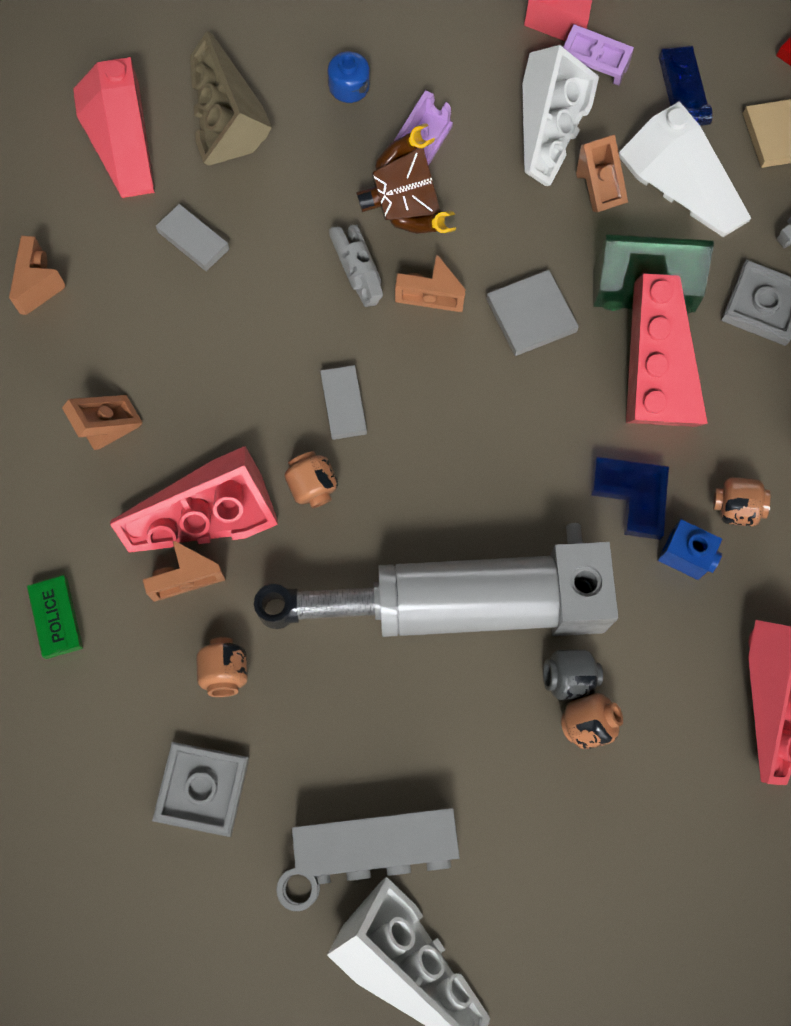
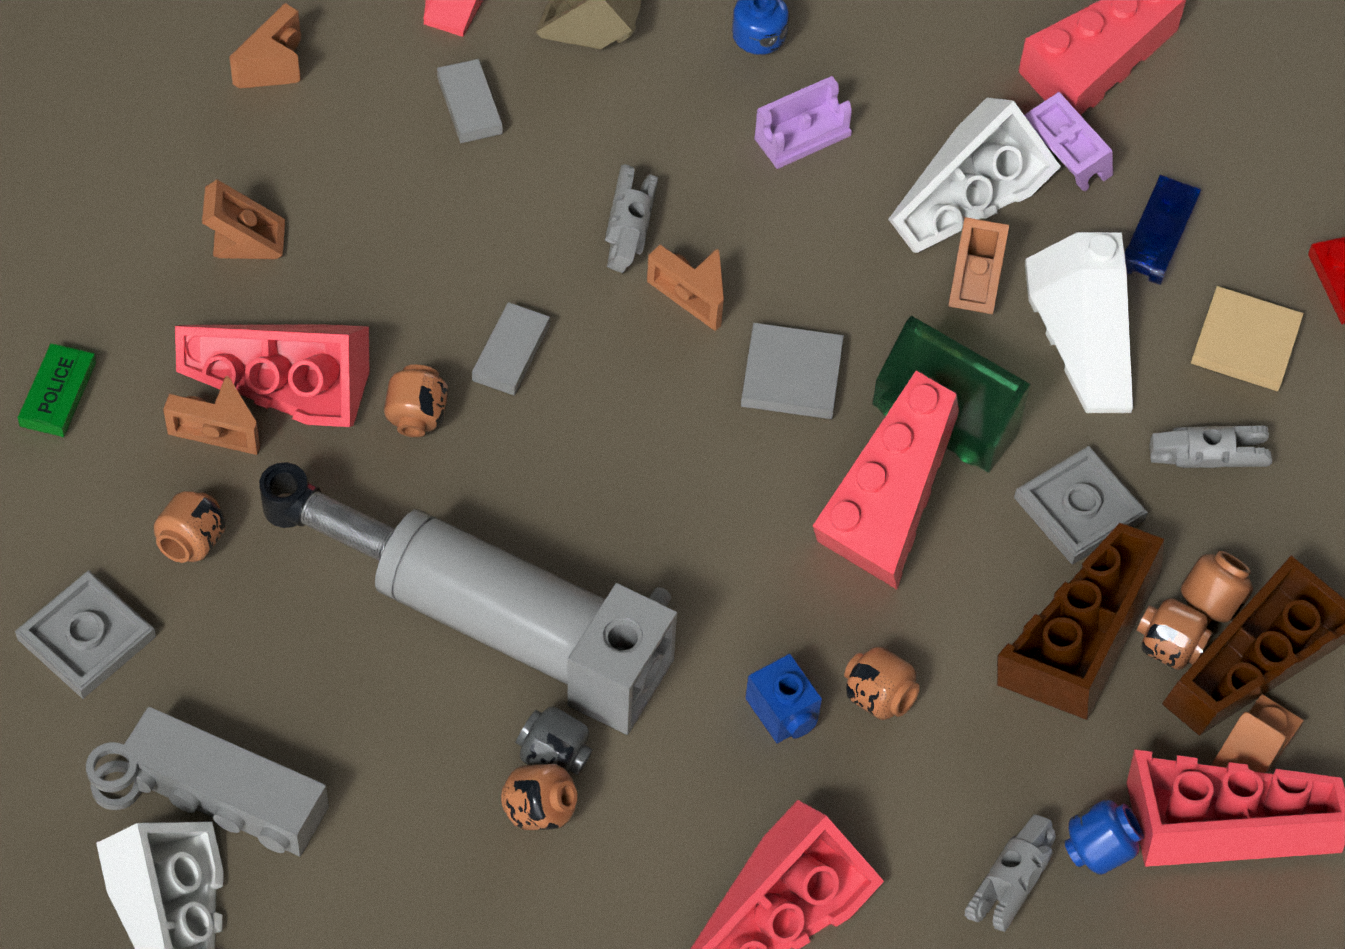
camera: 30 degrees right, 15 degrees down
(406, 187) = (735, 163): reddish brown torso -> none
(642, 487) = (776, 605): clear blue plate -> none

